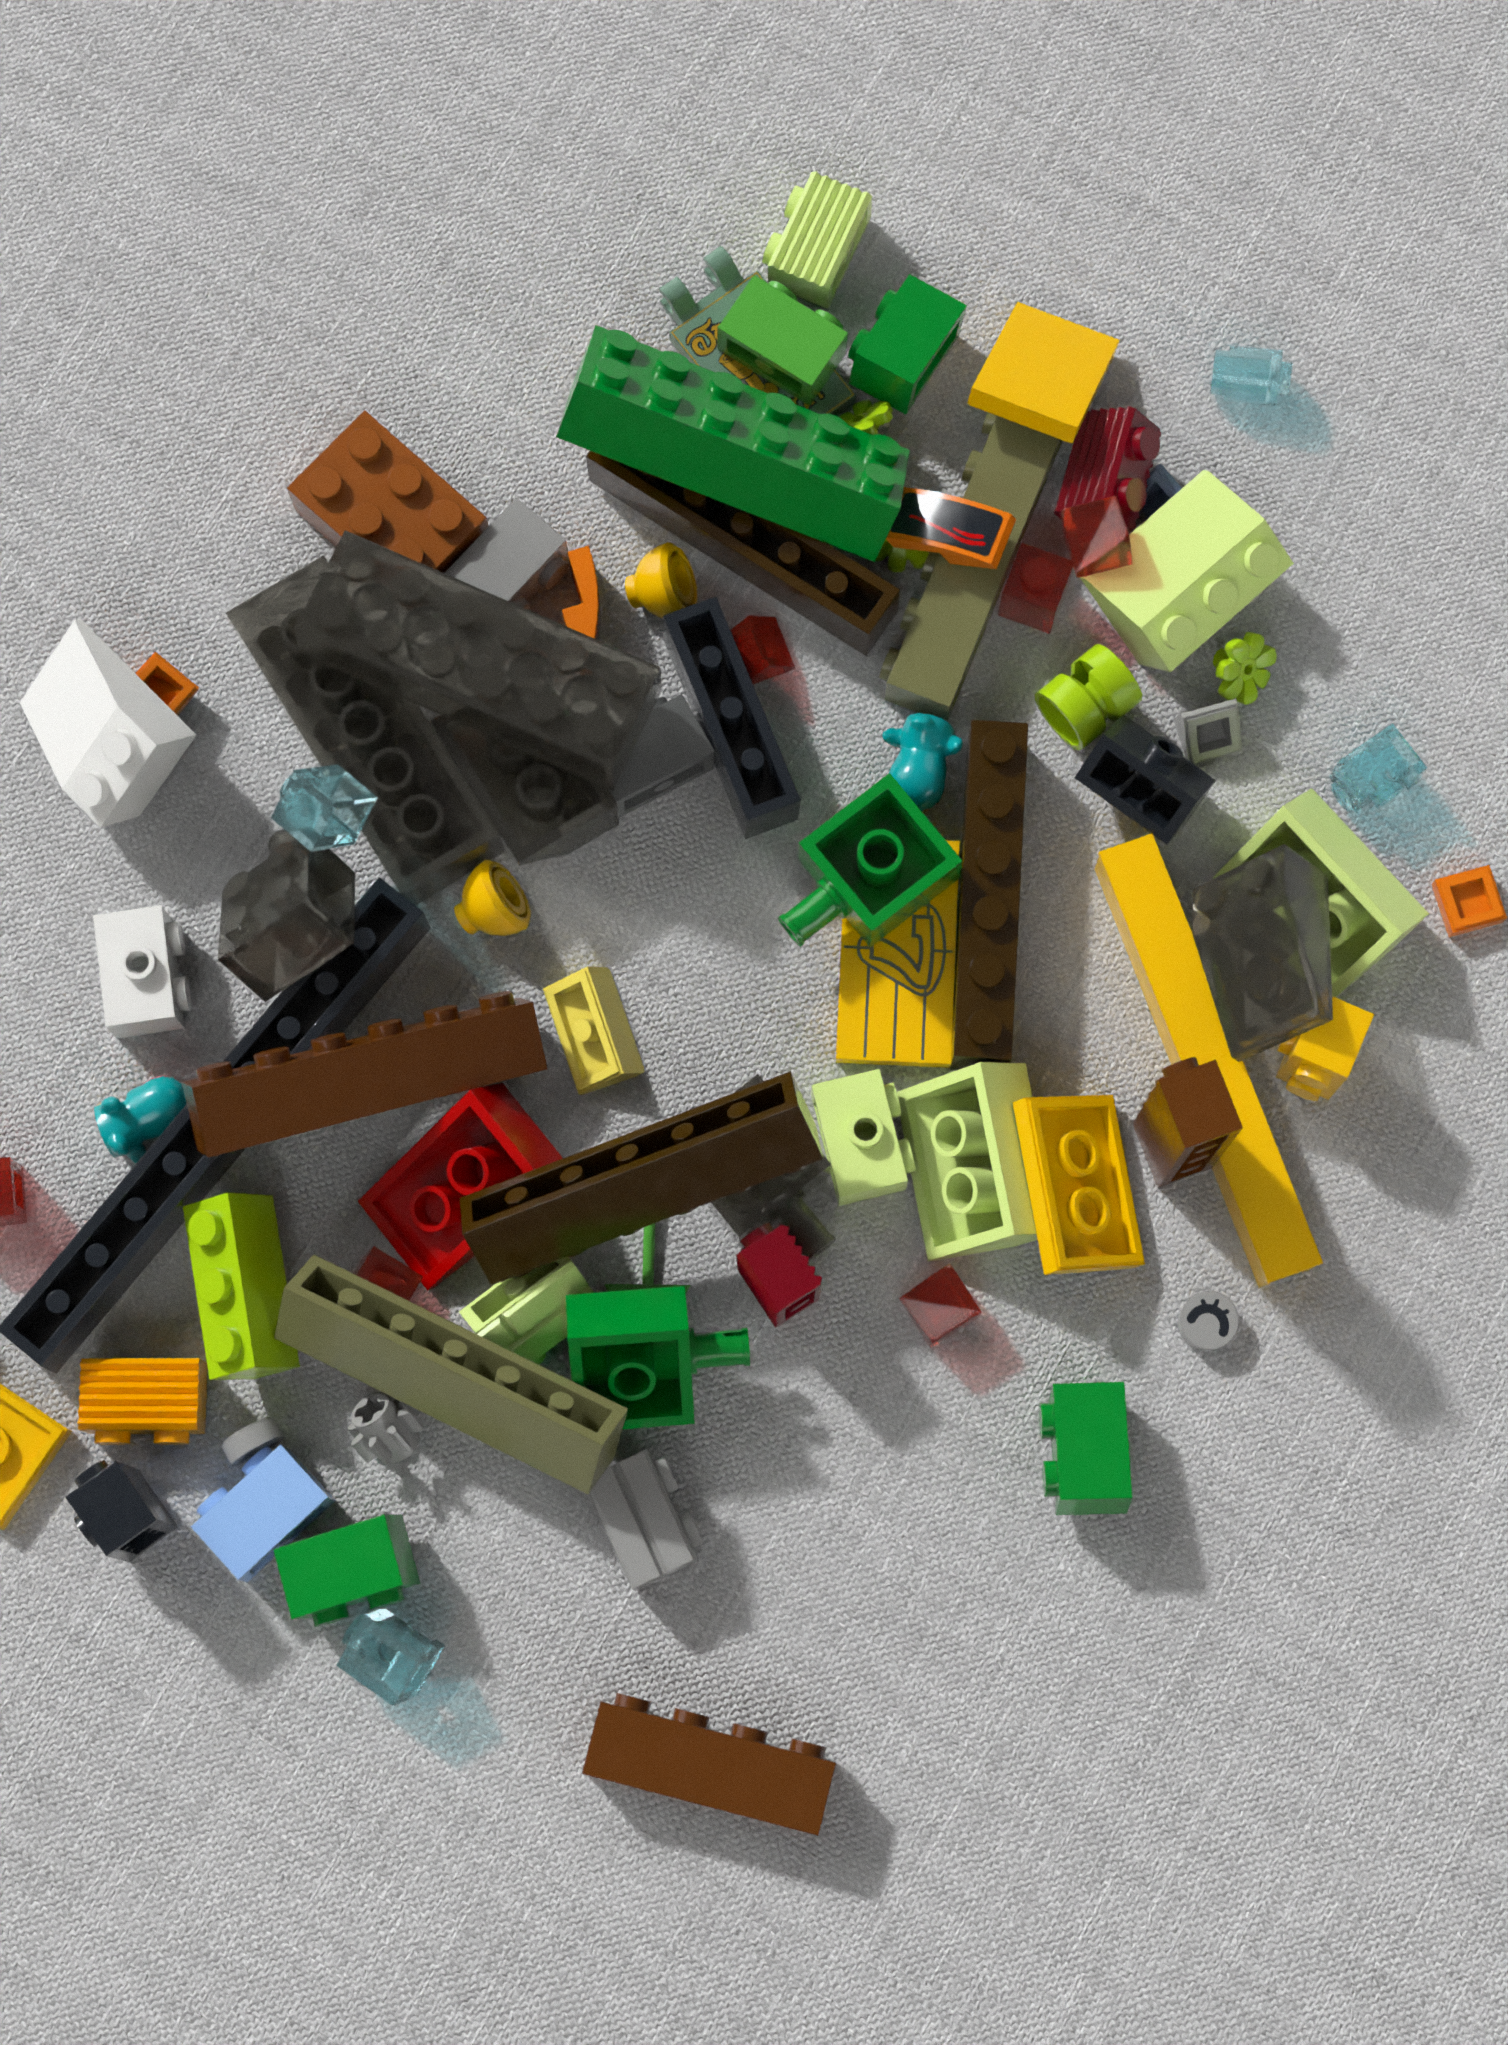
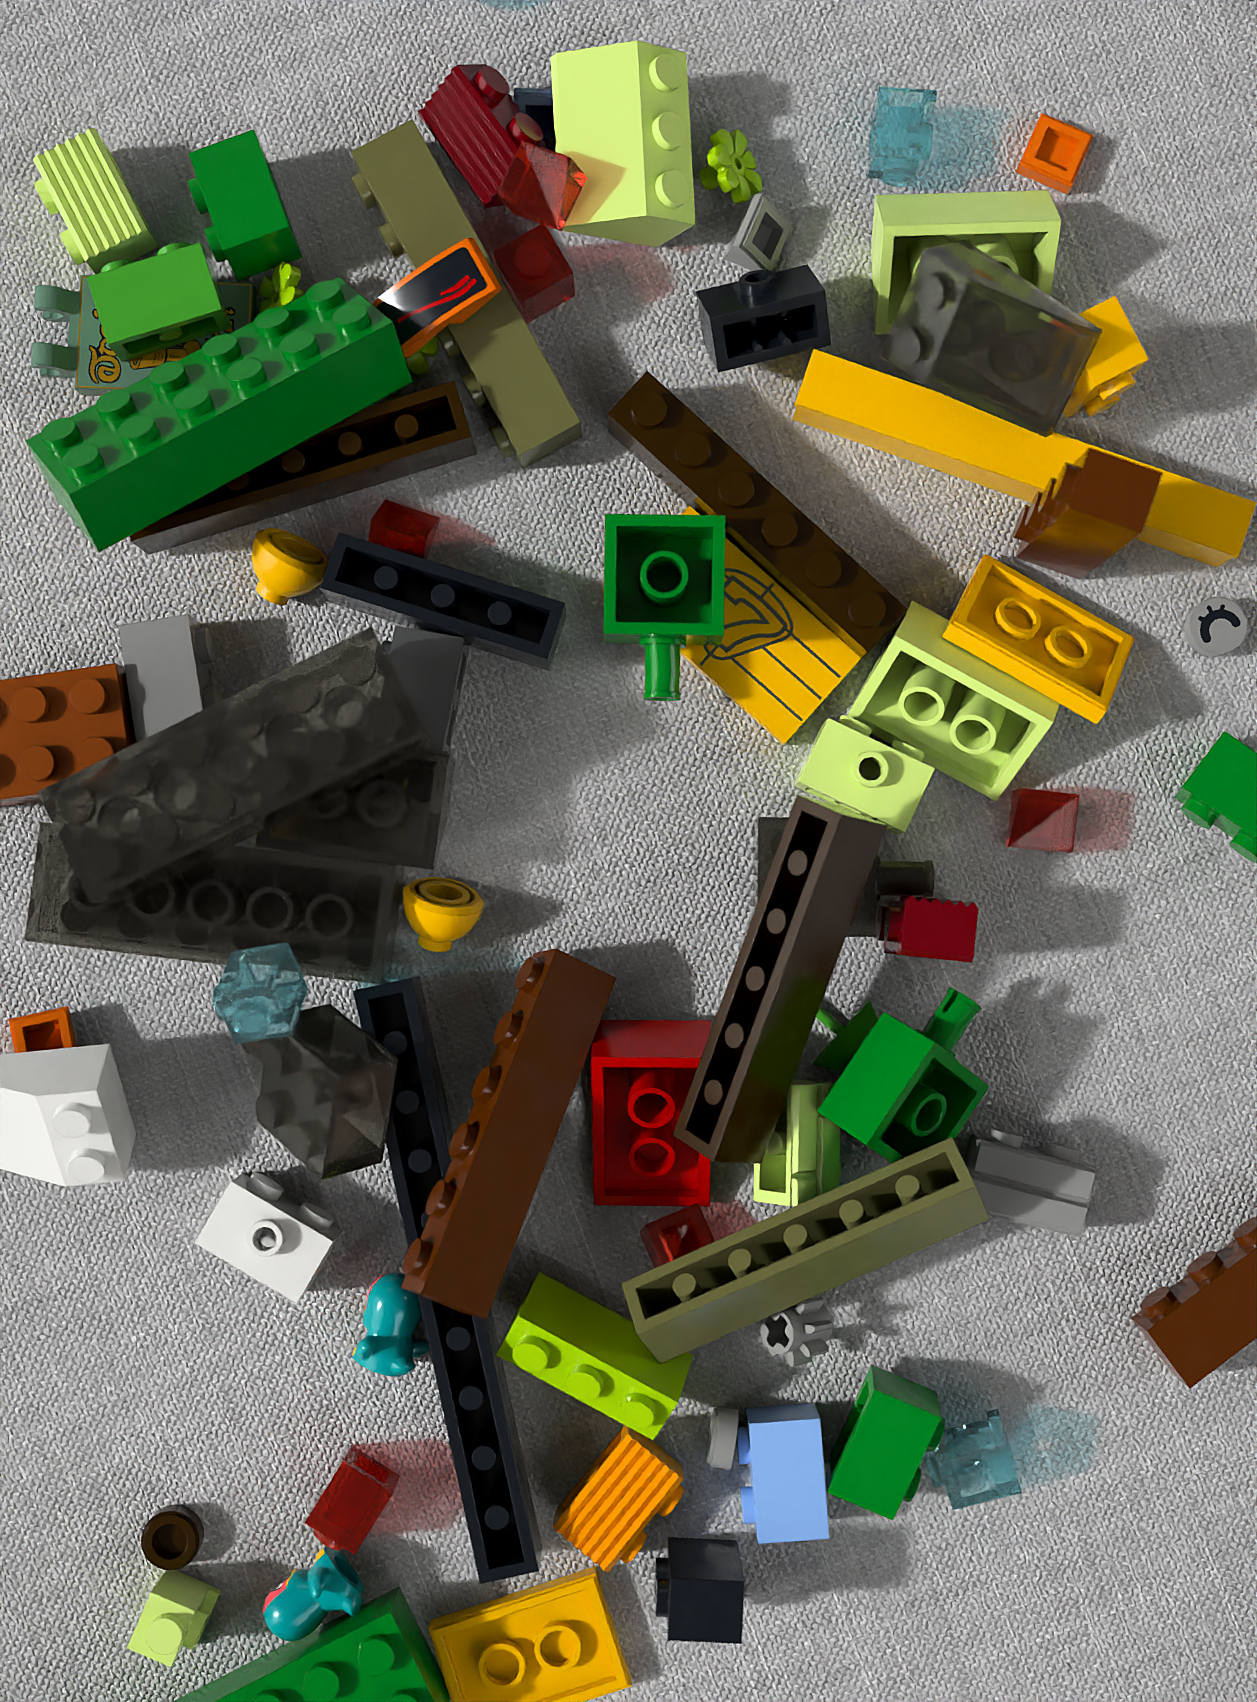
camera: 55 degrees left, 10 degrees up
(587, 615) = (265, 655): orange slope -> none
(593, 1029) = (605, 912): light yellow slope -> none
(922, 756) = (602, 481): teal animal -> none
(1043, 372) = (363, 116): yellow tile -> none
(1093, 692) = (658, 297): lime wheel -> none

